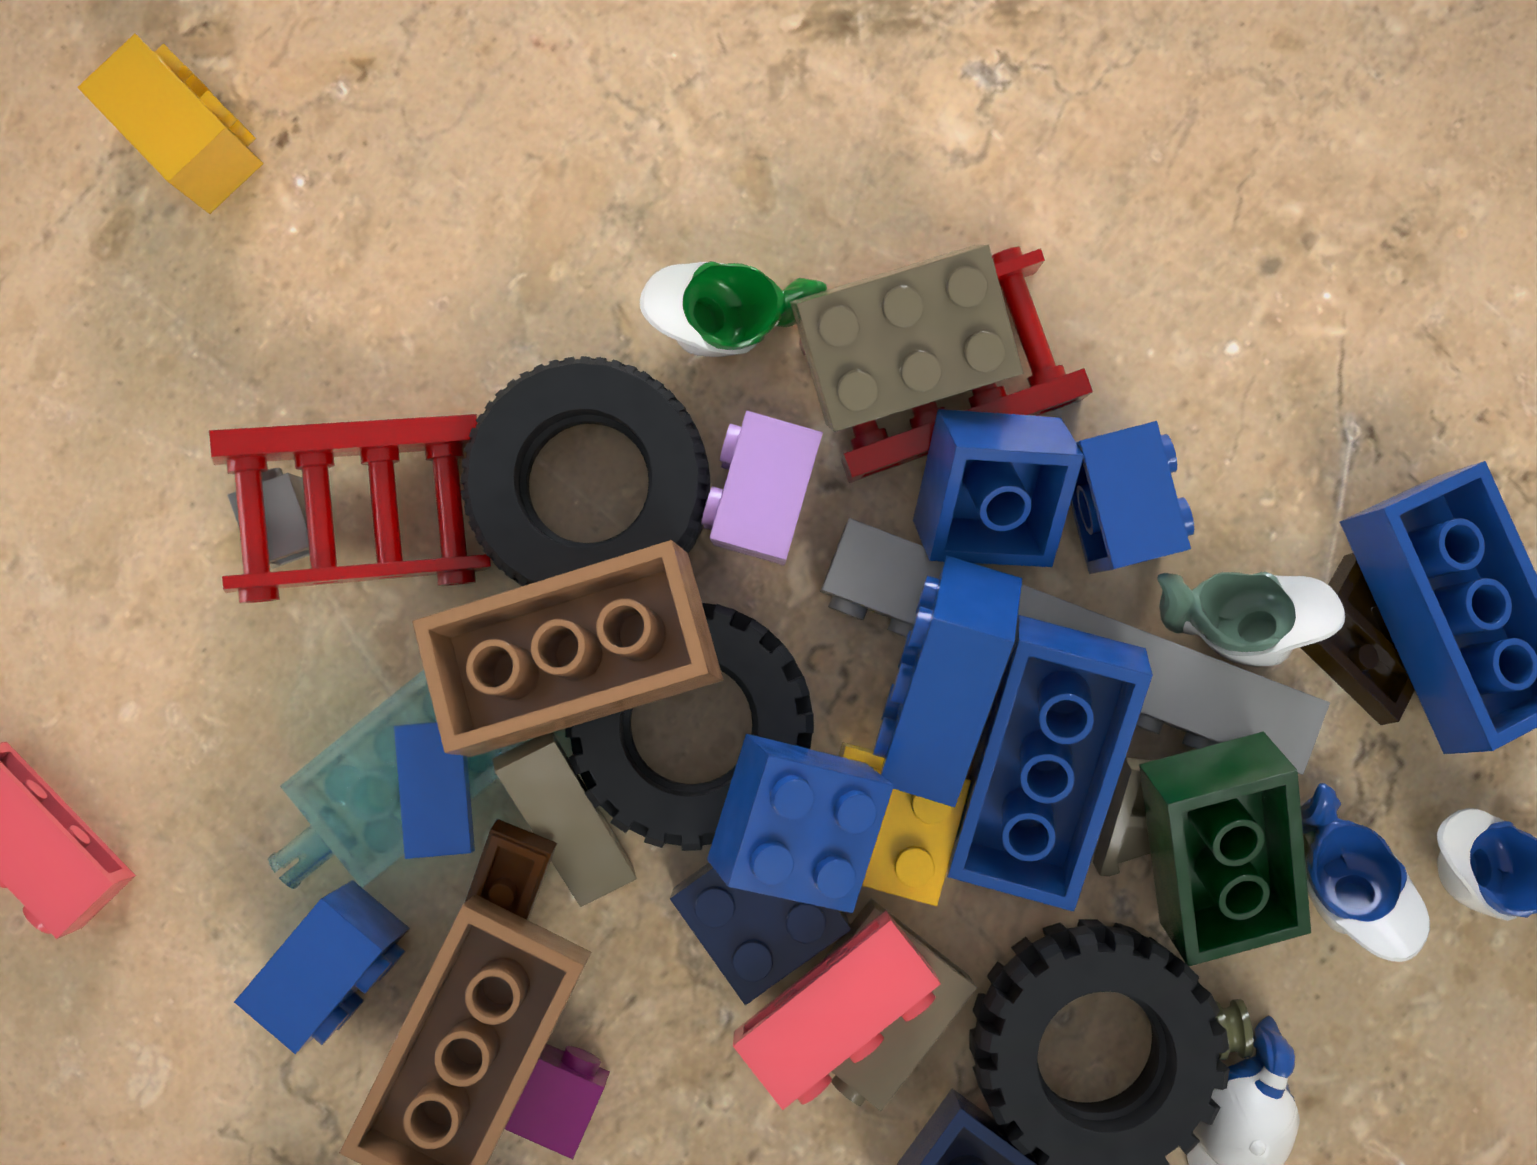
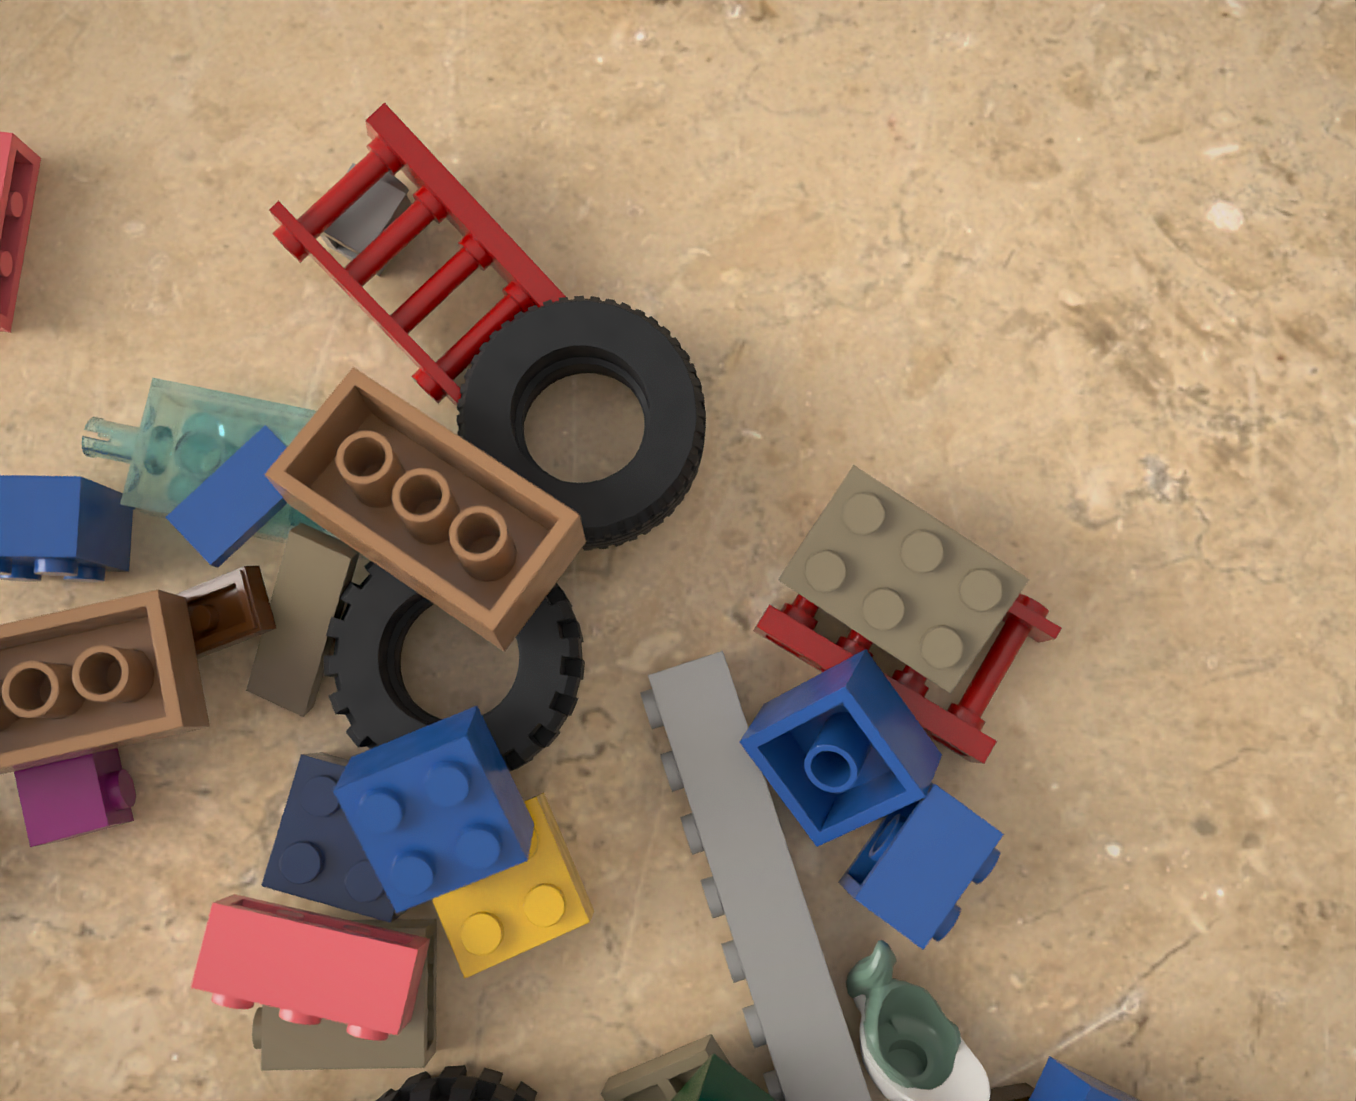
camera: 55 degrees right, 5 degrees down
(720, 306) = (804, 414): green hair -> none
(764, 486) = (690, 561): lavender brick -> none
(947, 679) = (653, 834): blue brick -> none
(1049, 762) = (655, 975): blue brick -> none

